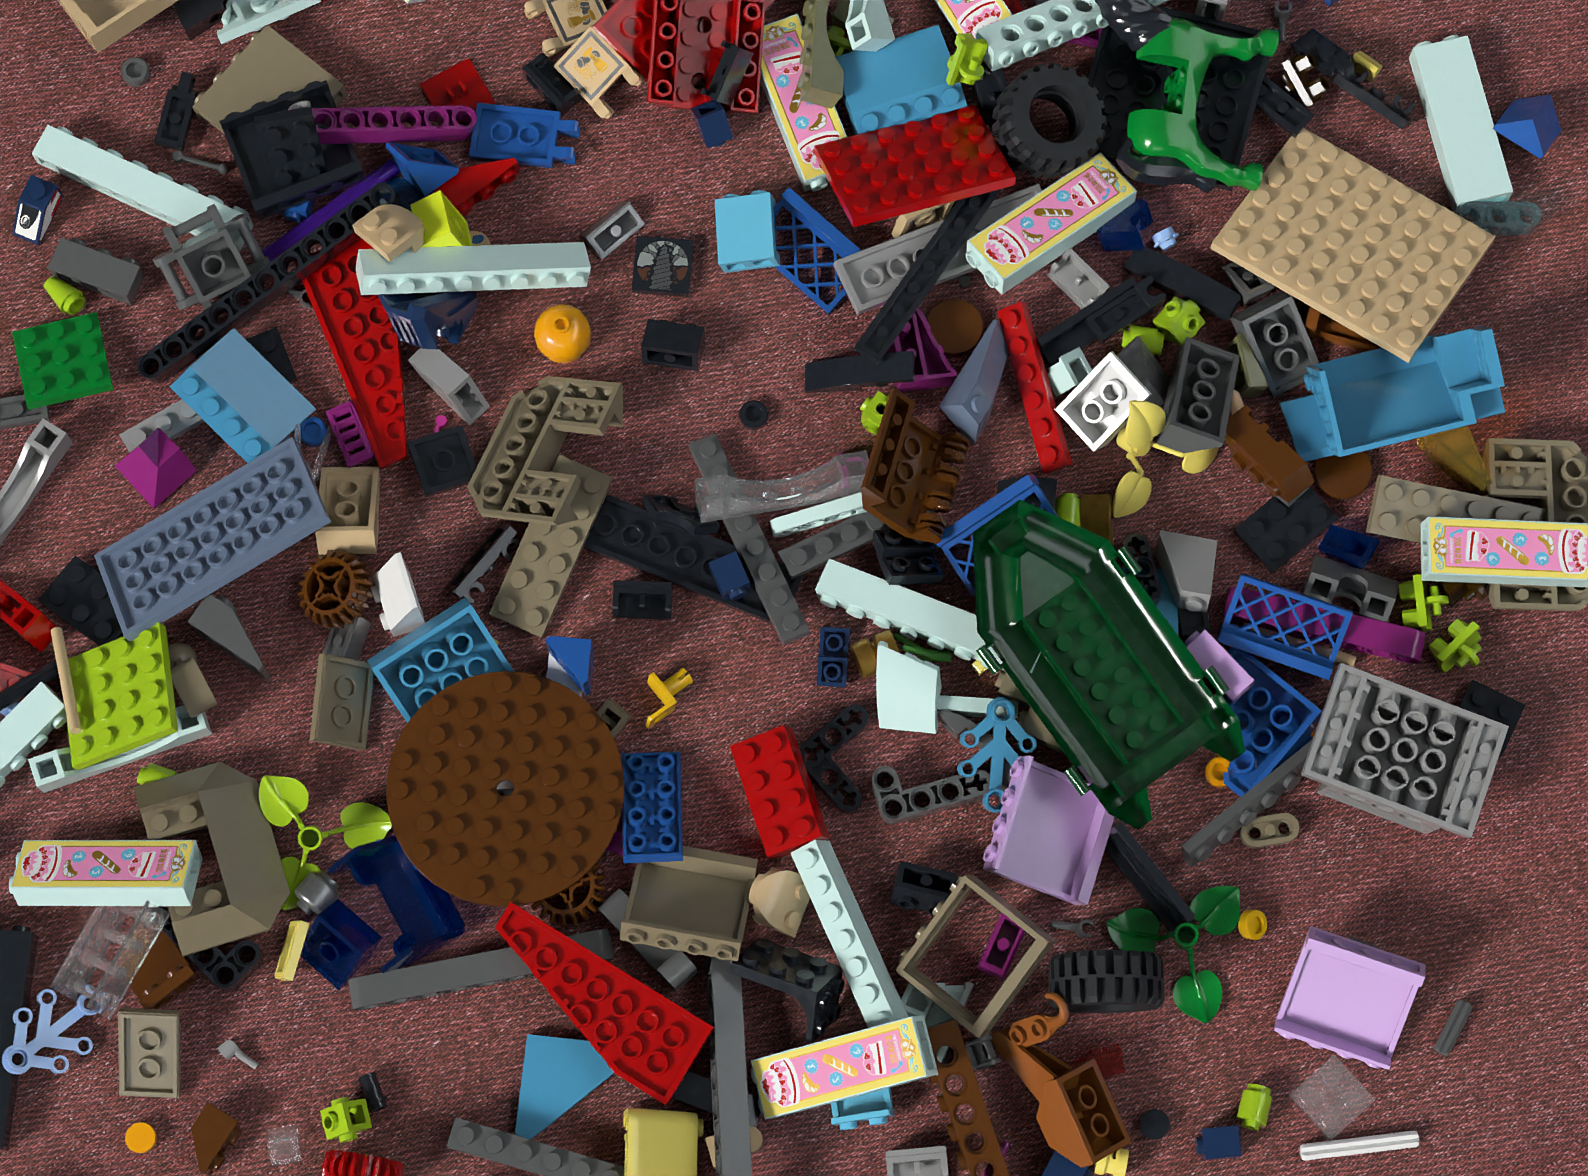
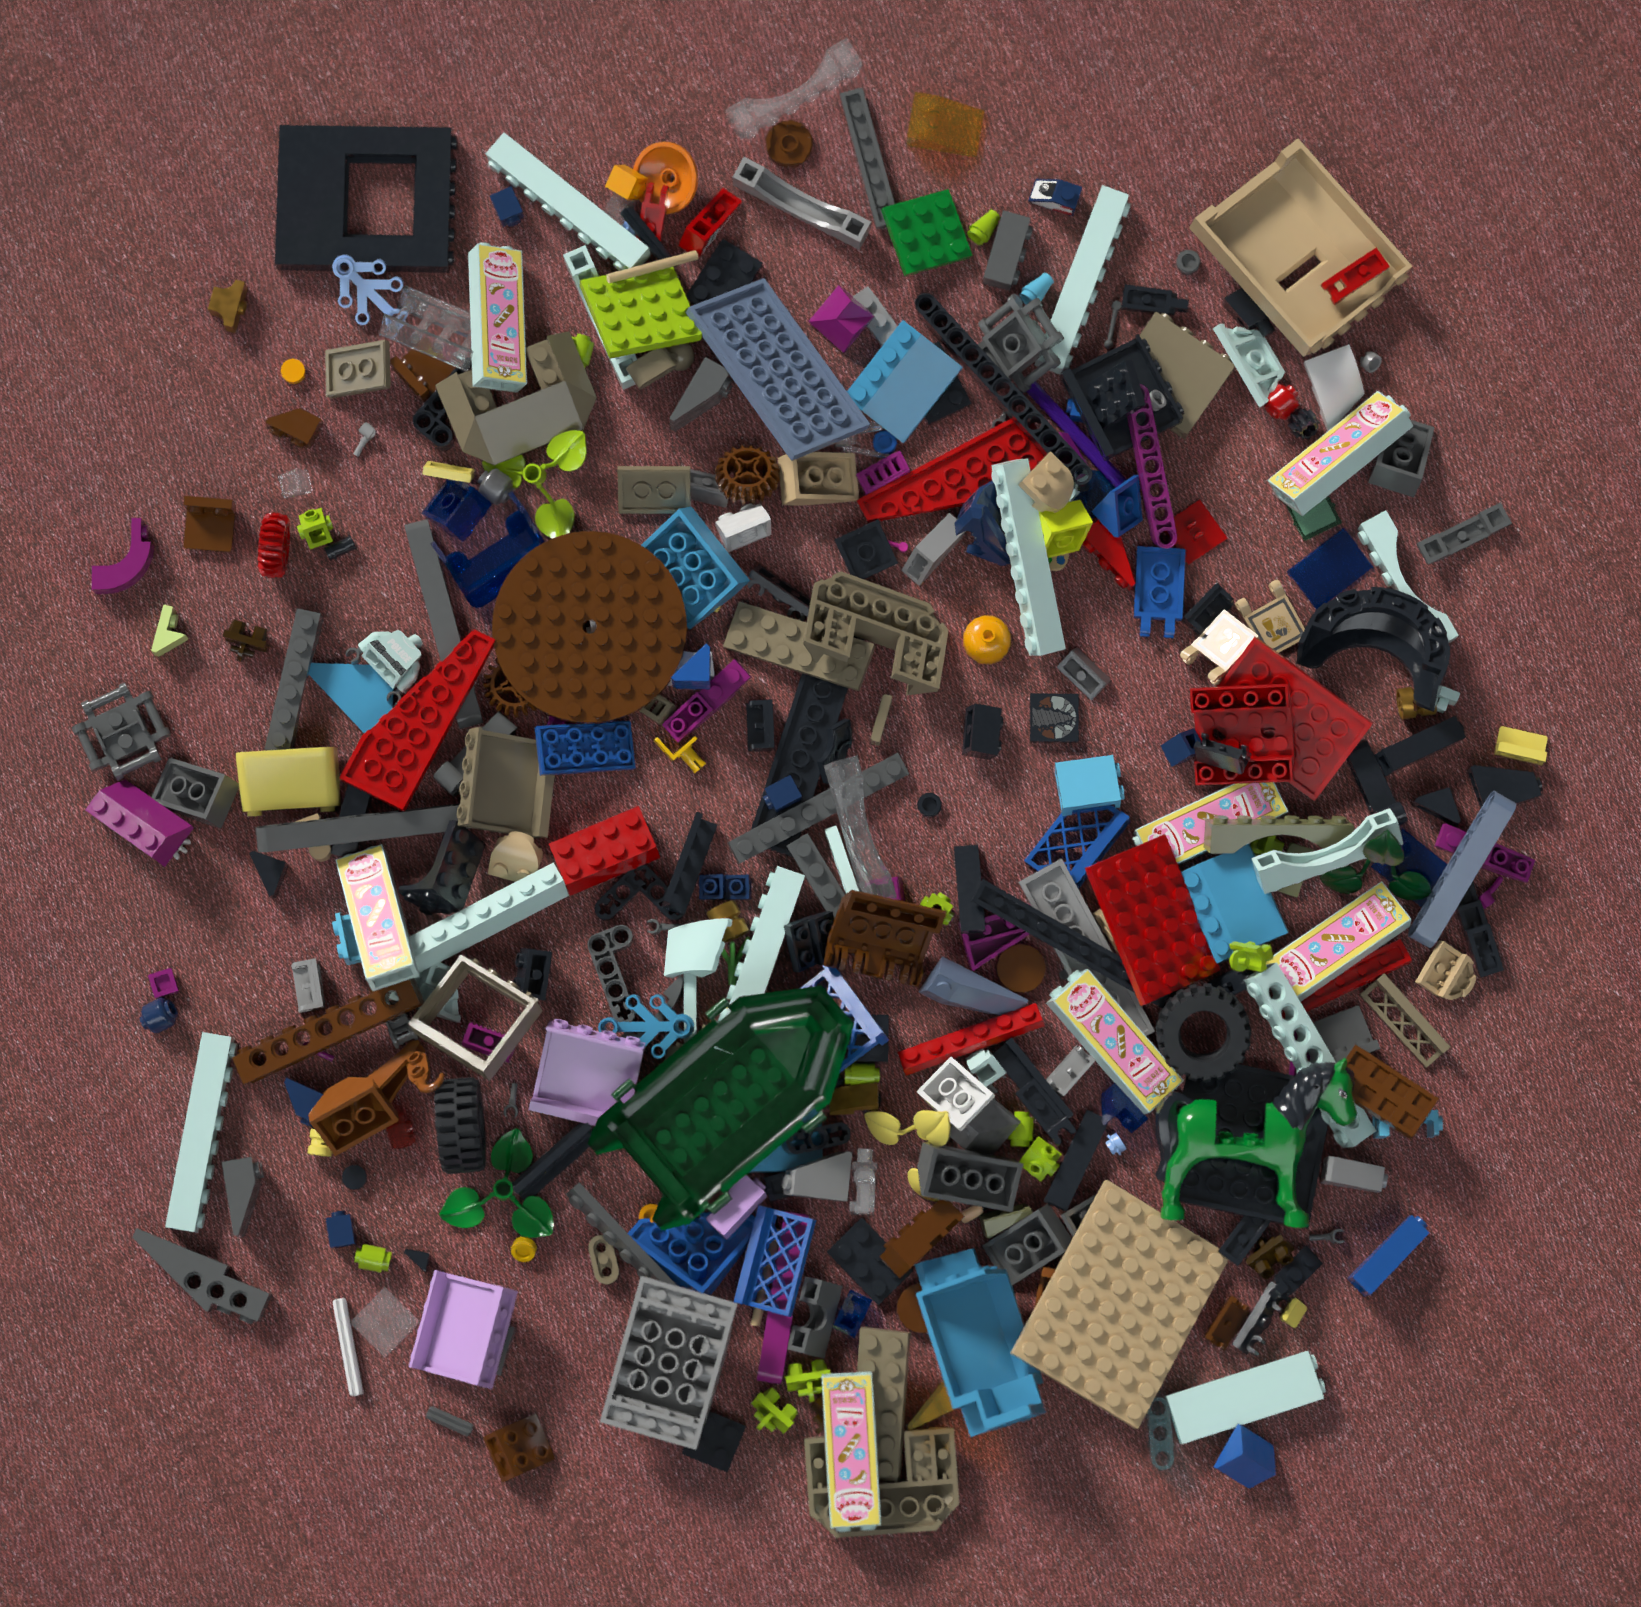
camera: 85 degrees right, 5 degrees up
(147, 241) = (1036, 289): none -> medium azure cone
(519, 1032) = (392, 658): none -> light aqua torso
(608, 660) = (707, 701): none -> magenta slope
(648, 459) = (881, 719): none -> dark tan tile
(804, 695) = (689, 865): none -> black fence
(874, 731) = (661, 926): none -> dark grey hand
(1199, 518) = (864, 1181): none -> clear hips
(1257, 1048) = (420, 1258): none -> black slope
(1374, 137) = (1227, 1323): none -> reddish brown hinge
(1489, 947) = (518, 1448): none -> reddish brown bracket

